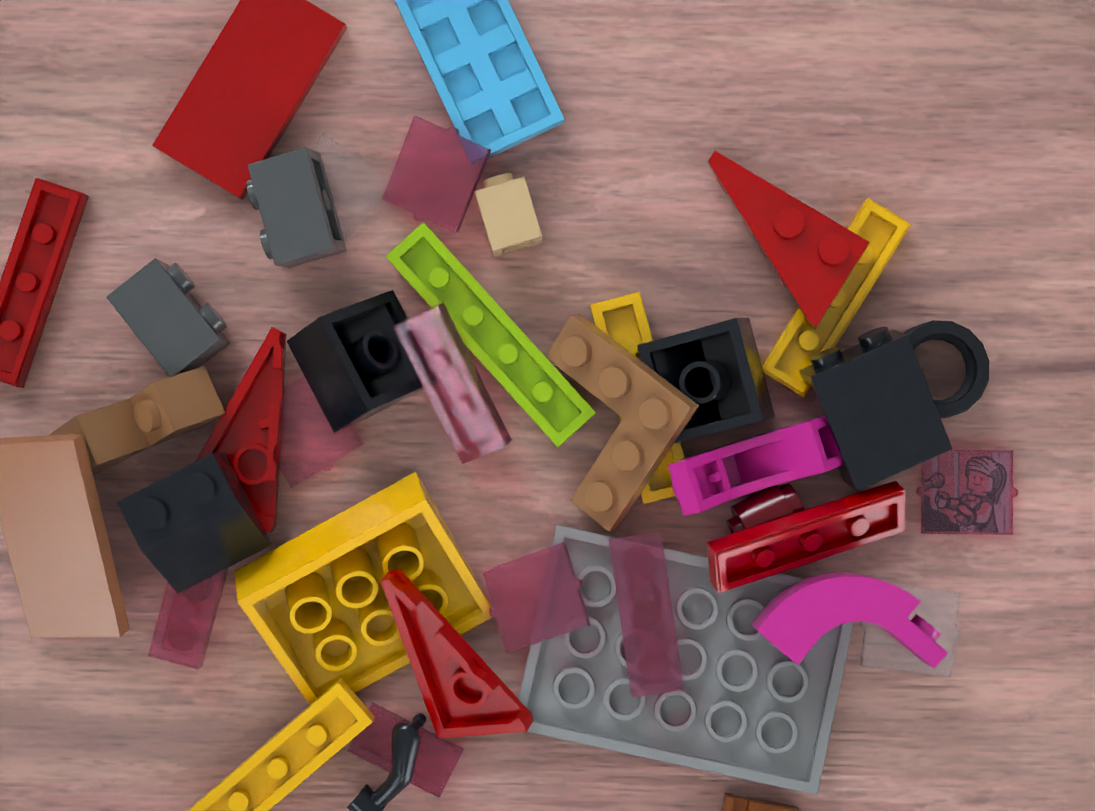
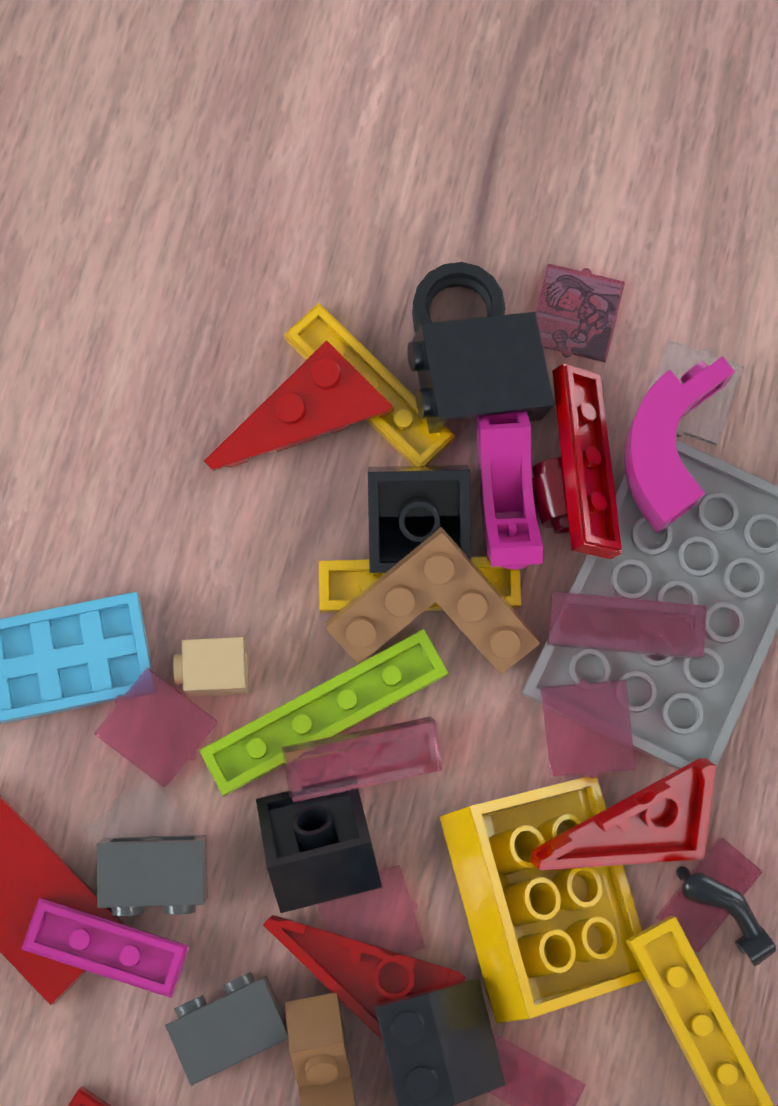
camera: 75 degrees left, 10 degrees down
(215, 183) = (105, 947): none -> dark pink tile

